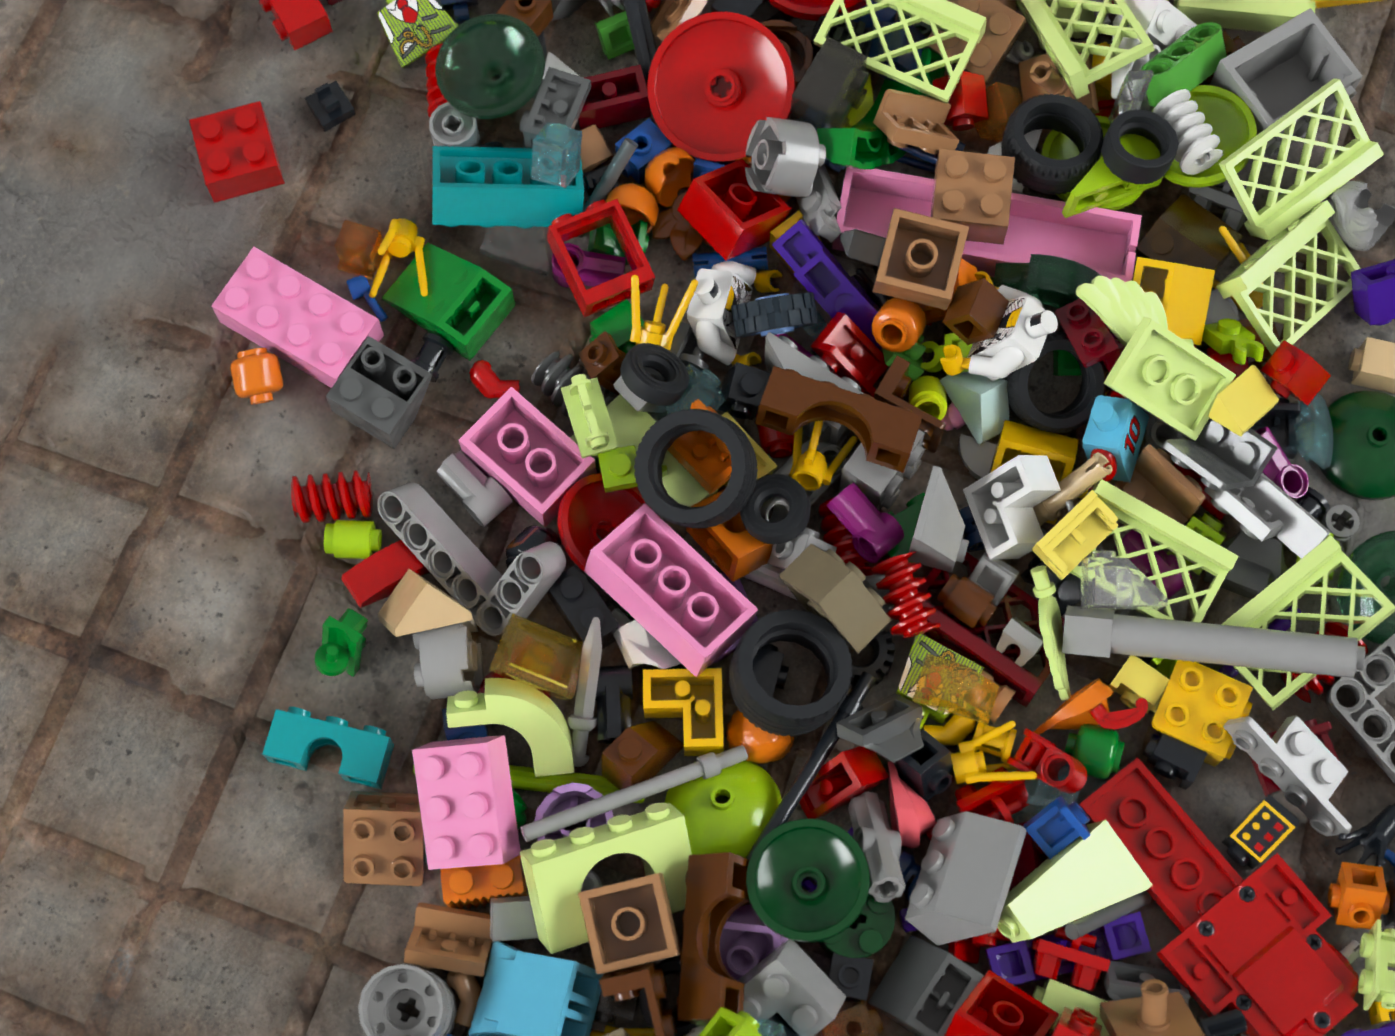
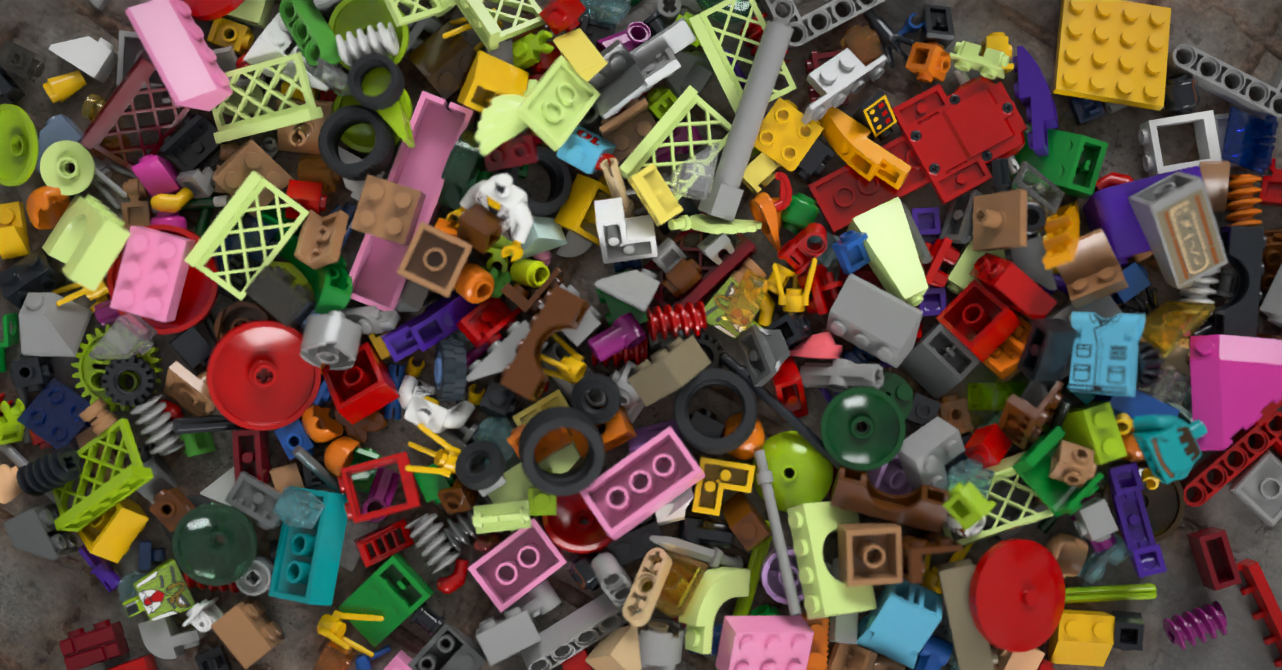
camera: 80 degrees left, 15 degrees up
(353, 40) = (165, 640): none -> light grey brick
(379, 133) = (248, 631): none -> medium nougat brick
(394, 78) = (204, 615): none -> white hinge
(427, 454) = (507, 635): none -> light grey brick
(493, 612) = (650, 598): none -> tan beam
(507, 256) = (360, 543): none -> red slope
(538, 341) = (433, 541): none -> light grey piece
(547, 406) = (487, 544): none -> clear red arm
(1197, 826) = (860, 153): none -> light orange slope
(1360, 795) = (862, 43): none -> clear orange brick

